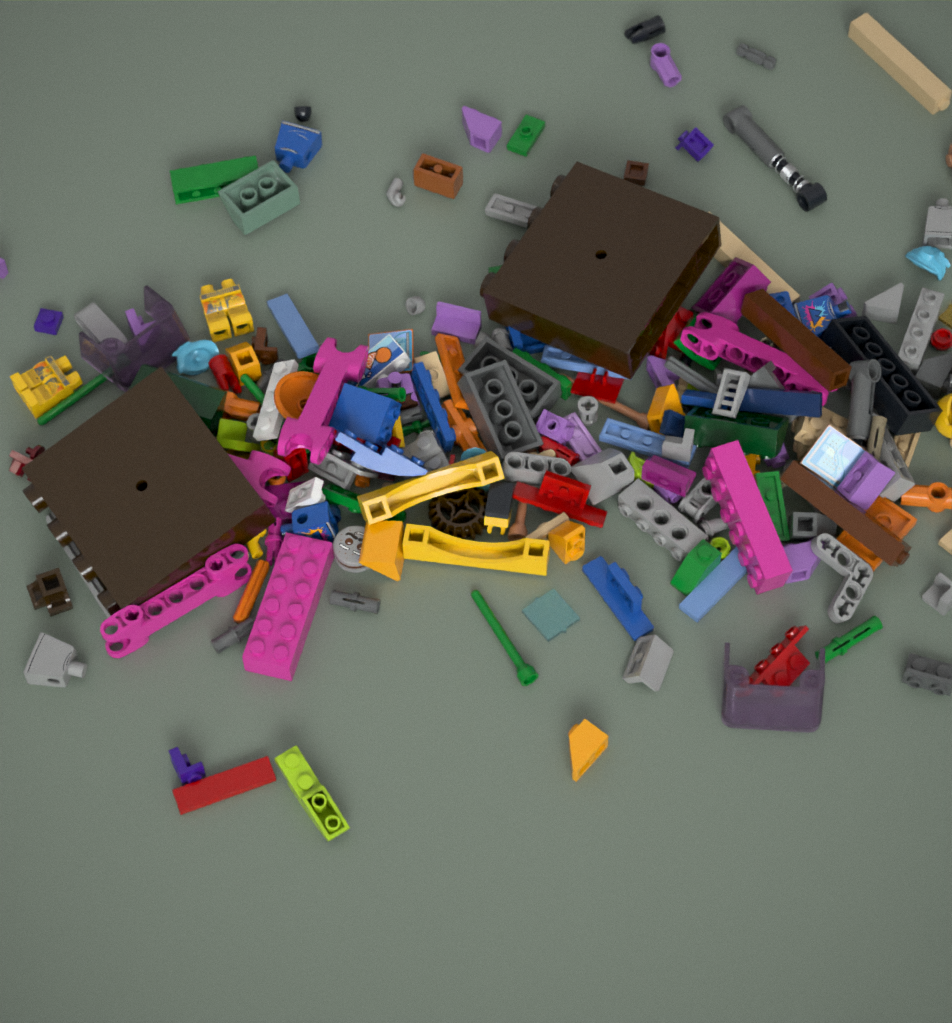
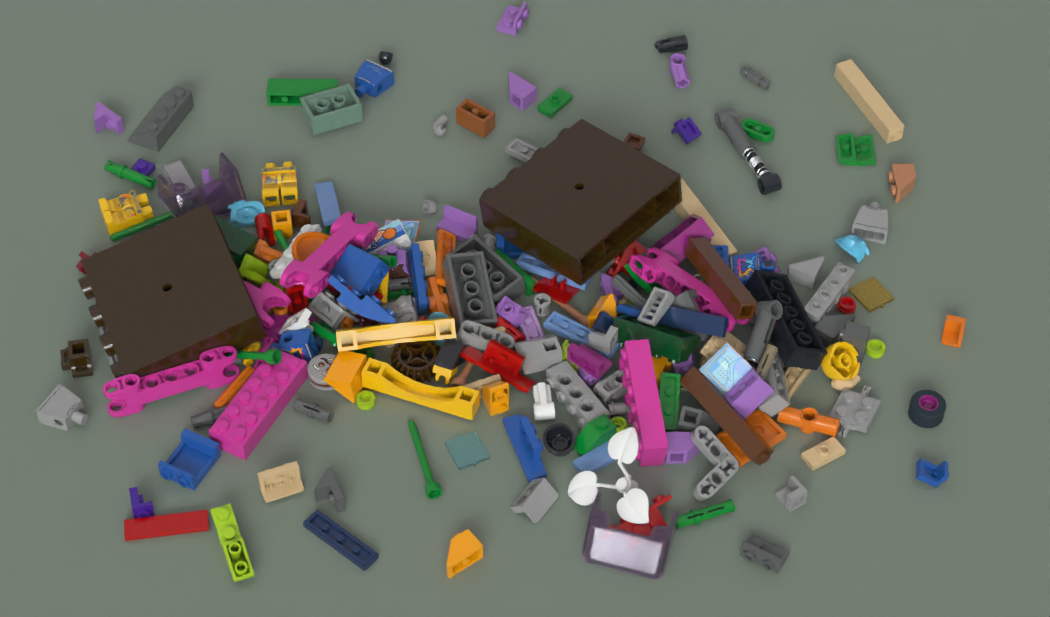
camera: 10 degrees right, 10 degrees down
(27, 331) = (123, 171): none -> green pin
(52, 249) = (163, 119): none -> dark grey slope
(227, 696) = (190, 460): none -> blue panel
(291, 546) = (271, 356): none -> green piece
(345, 703) = (280, 482): none -> tan bracket
(406, 698) = (329, 488): none -> dark grey slope
(412, 575) = (365, 400): none -> lime tile
(436, 760) = (341, 540): none -> dark blue tile
(443, 30) = (513, 19): none -> medium lavender bracket
(625, 541) = (543, 403): none -> white piece
(657, 585) = (559, 446): none -> black helmet
(770, 649) = (635, 503): none -> white plant
(779, 127) = (758, 130): none -> green plate
(900, 131) = (855, 150): none -> green slope

